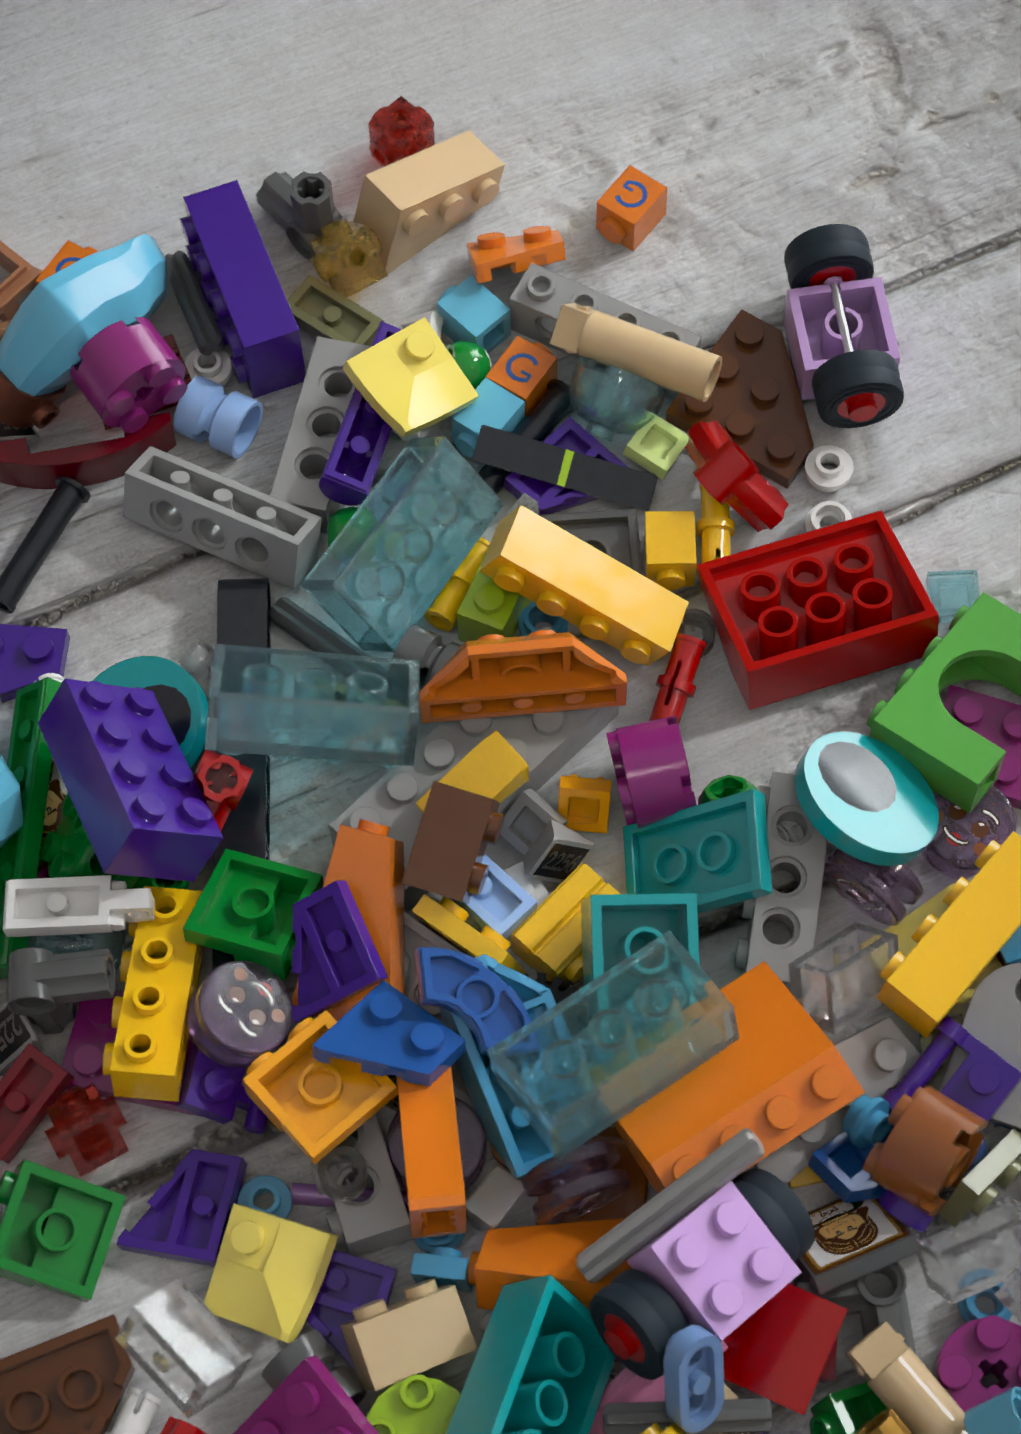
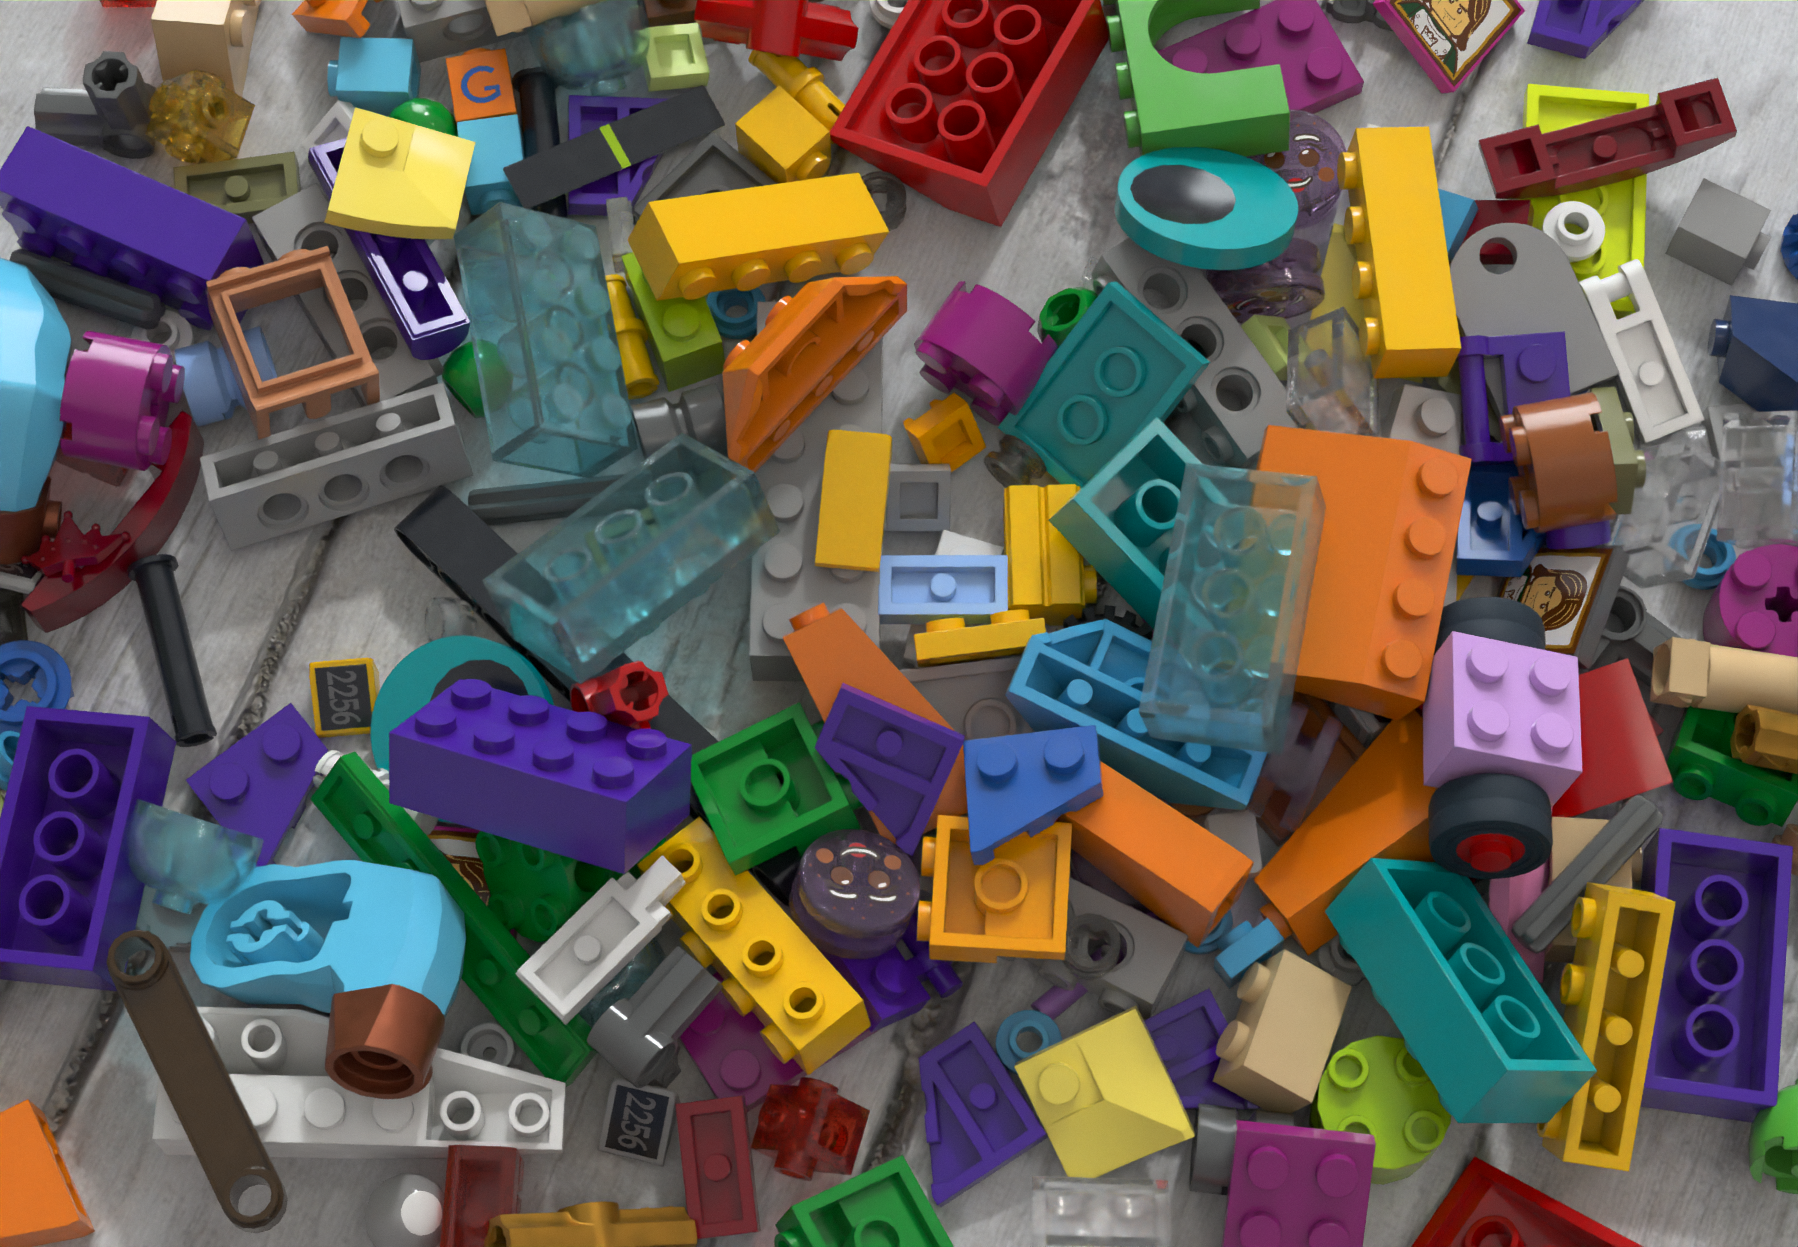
camera: 45 degrees left, 5 degrees up
(34, 439) = (73, 549): none -> dark red piece
(98, 649) = (343, 696): none -> slope
(240, 455) = (290, 275): none -> nougat window
(453, 843) = (896, 565): reddish brown brick -> none
(471, 992) = (1062, 679): blue tile -> none
(556, 853) = (968, 501): slope -> none
(609, 857) = (1014, 463): none -> clear smoke bush
(670, 1205) = (1417, 702): light grey axle -> none
(678, 679) = (904, 221): red pin -> none
(693, 1378) = (1582, 827): medium blue plate -> none
(837, 914) = (1271, 340): none -> yellowish green plate
(867, 1121) = (1481, 490): dark azure plate -> none

